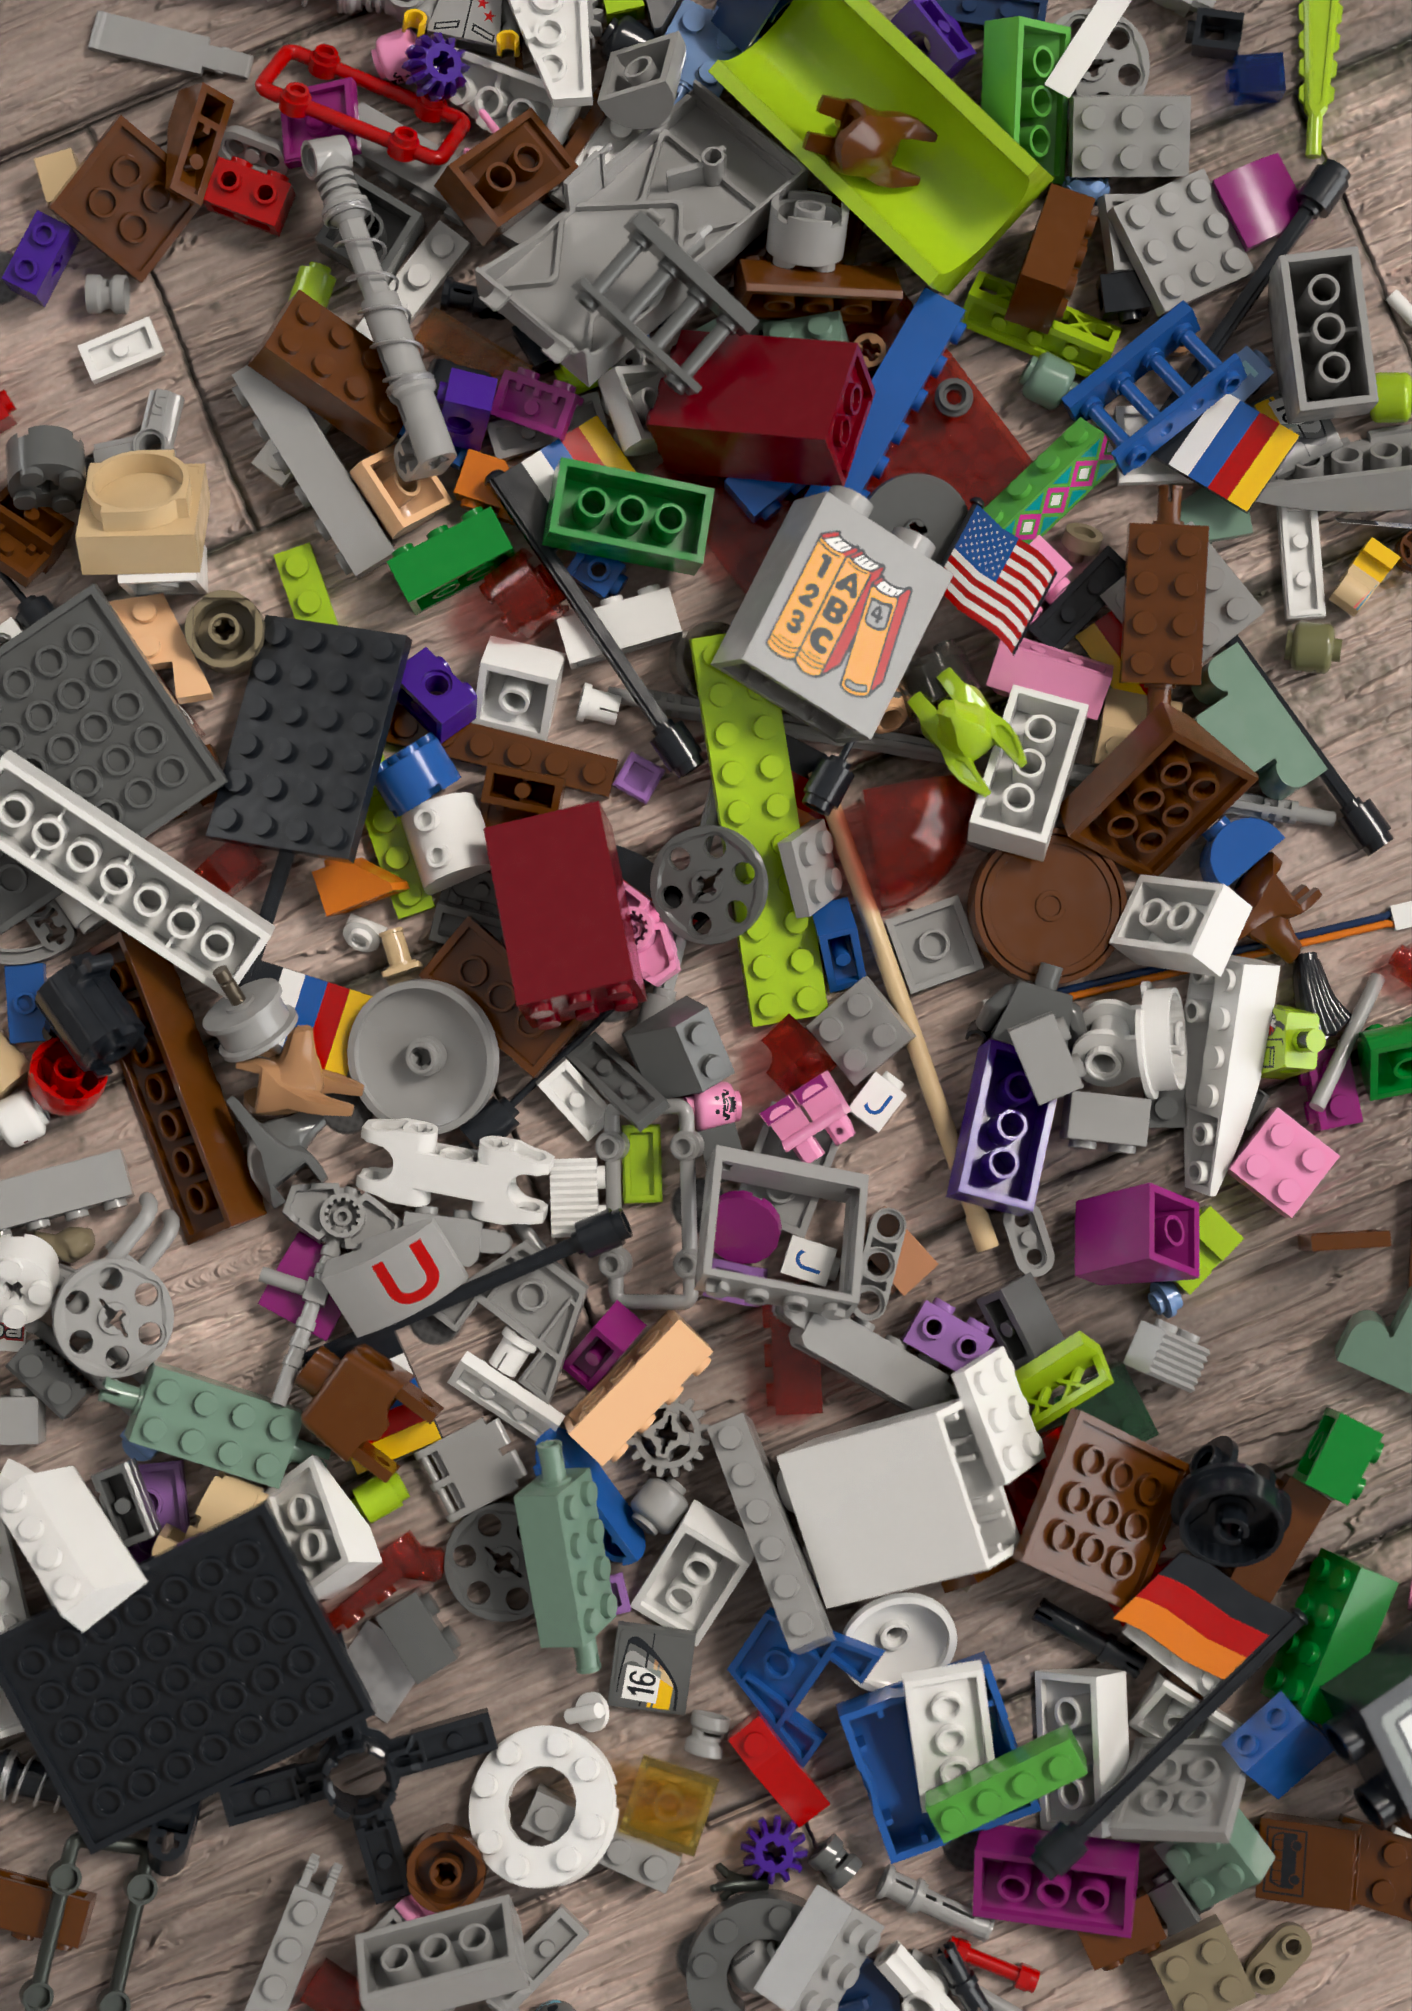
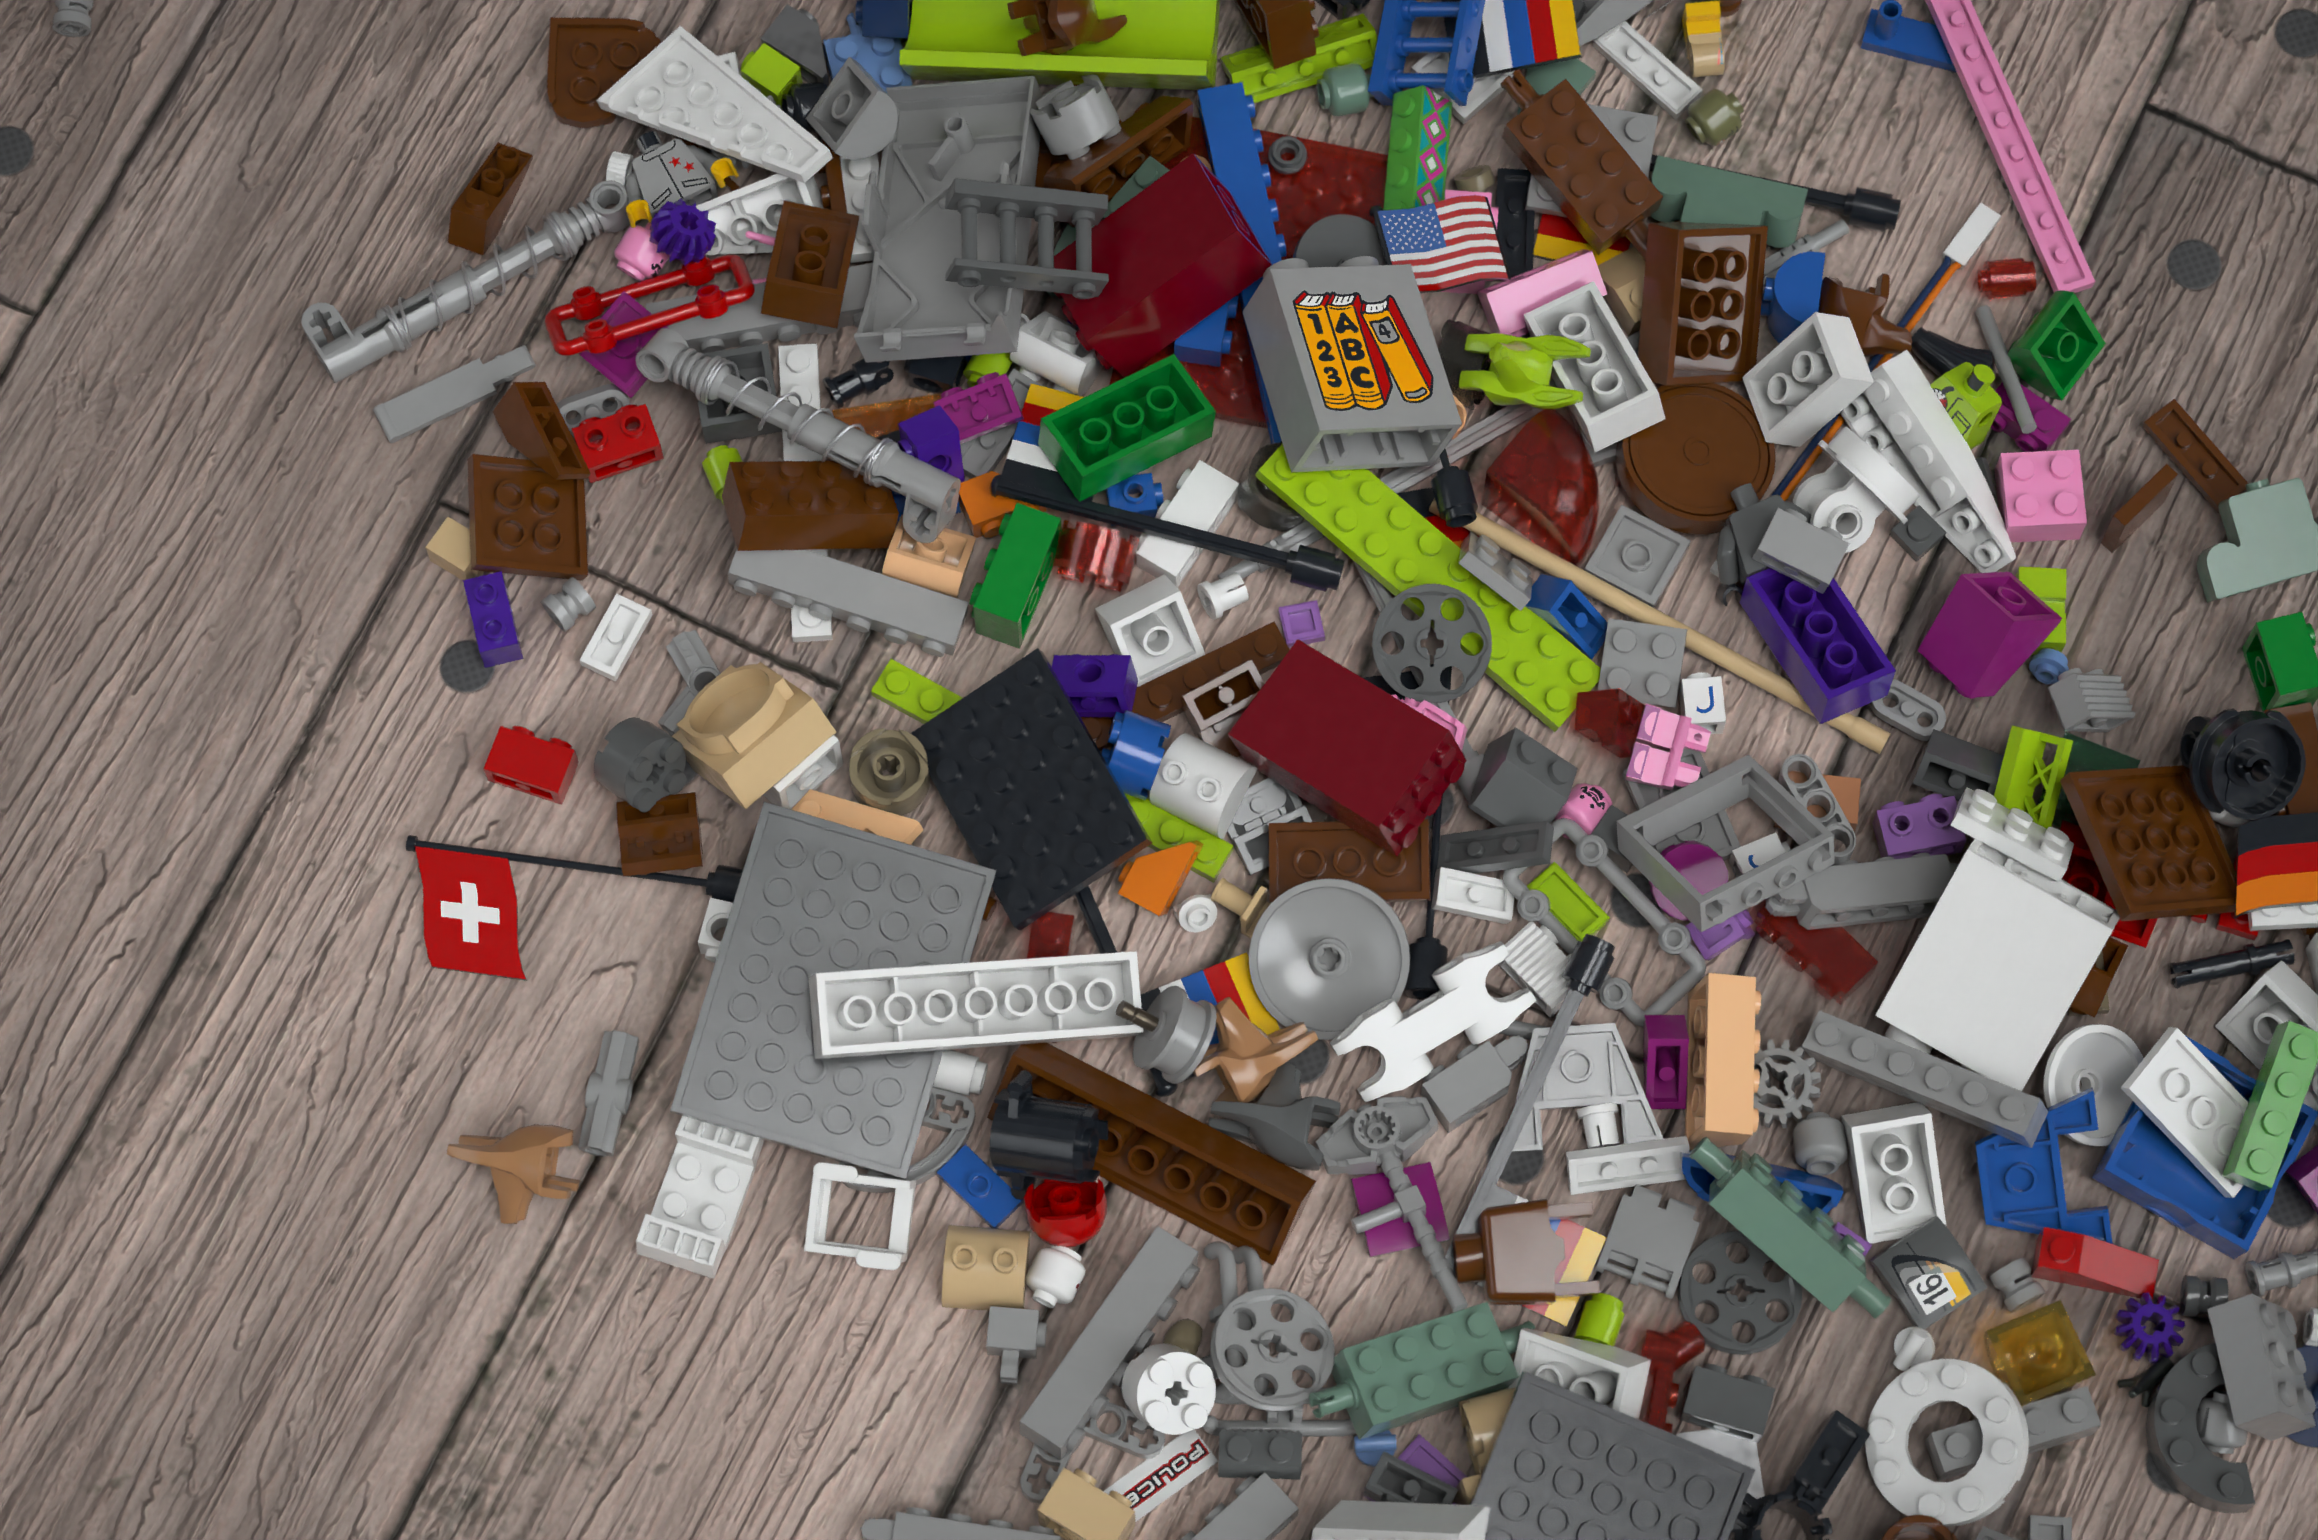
camera: 45 degrees left, 15 degrees down
(393, 1276) = (1460, 1135): light grey slope -> none
(1106, 1120) = (1885, 570): light grey brick -> none

